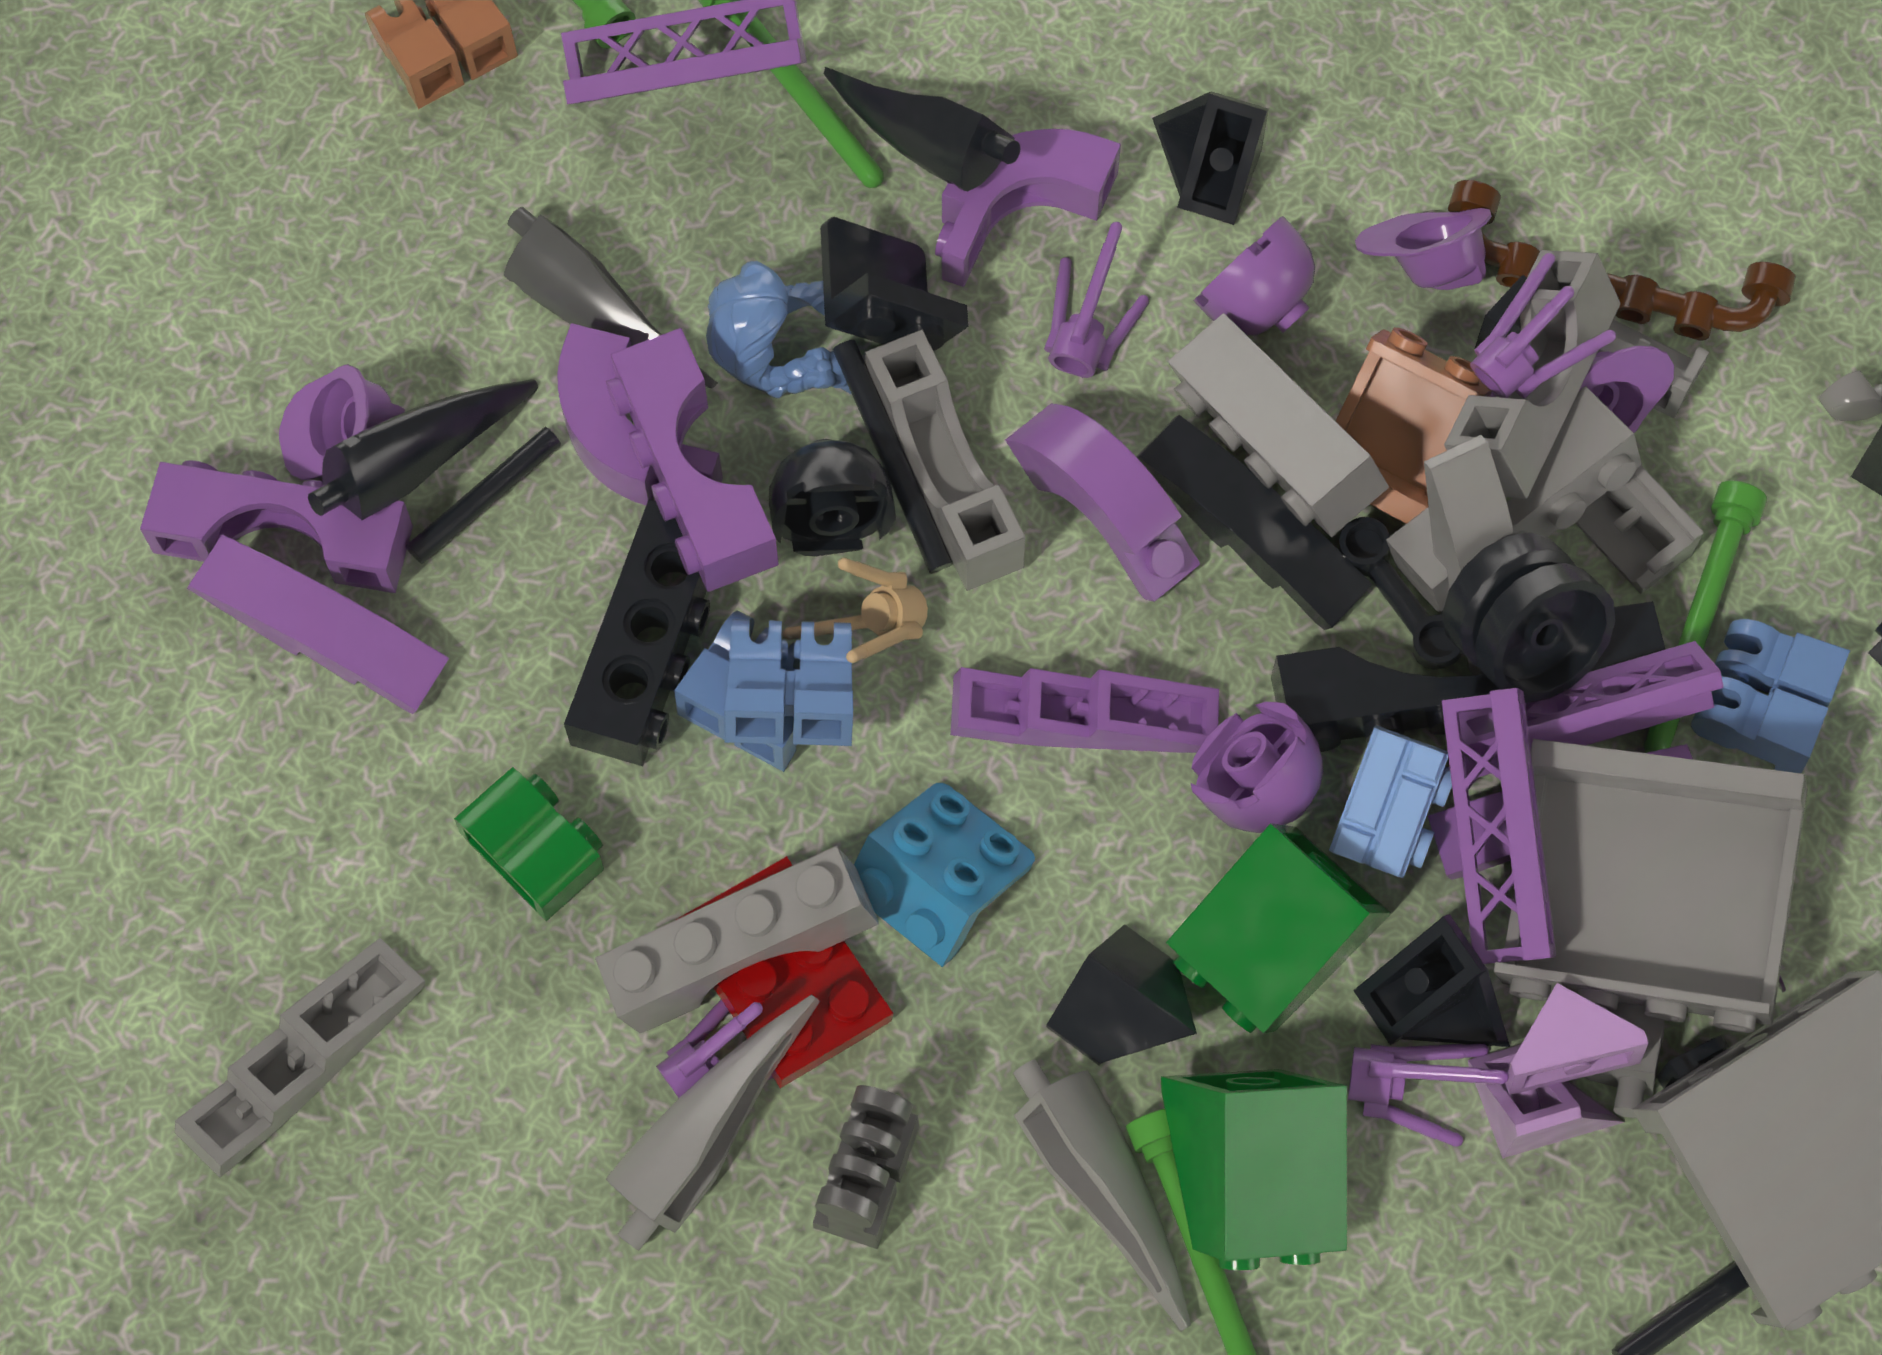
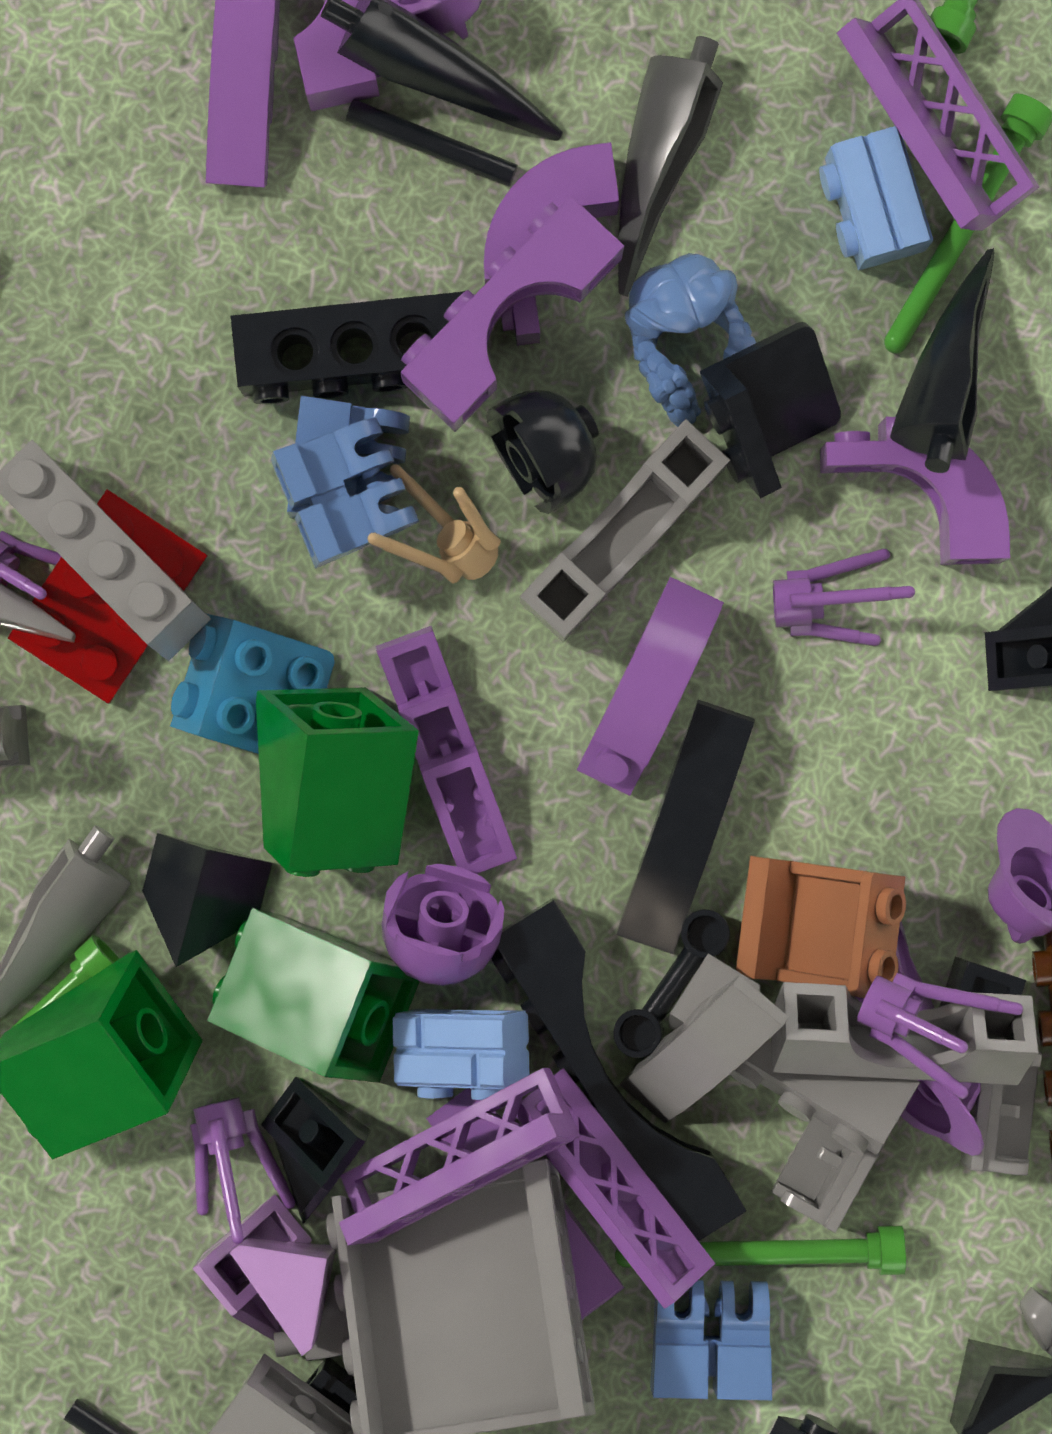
camera: 65 degrees right, 20 degrees up
(531, 842) = (126, 335): green brick -> none
(734, 135) = (876, 199): none -> light blue brick
(892, 456) = (613, 481): black bar -> none
(1069, 809) = (333, 778): none -> green slope
(1263, 282) = (924, 743): medium lavender cylinder -> none
(1277, 425) = (772, 815): light grey brick -> none
(1529, 616) = (657, 1114): black wheel -> none

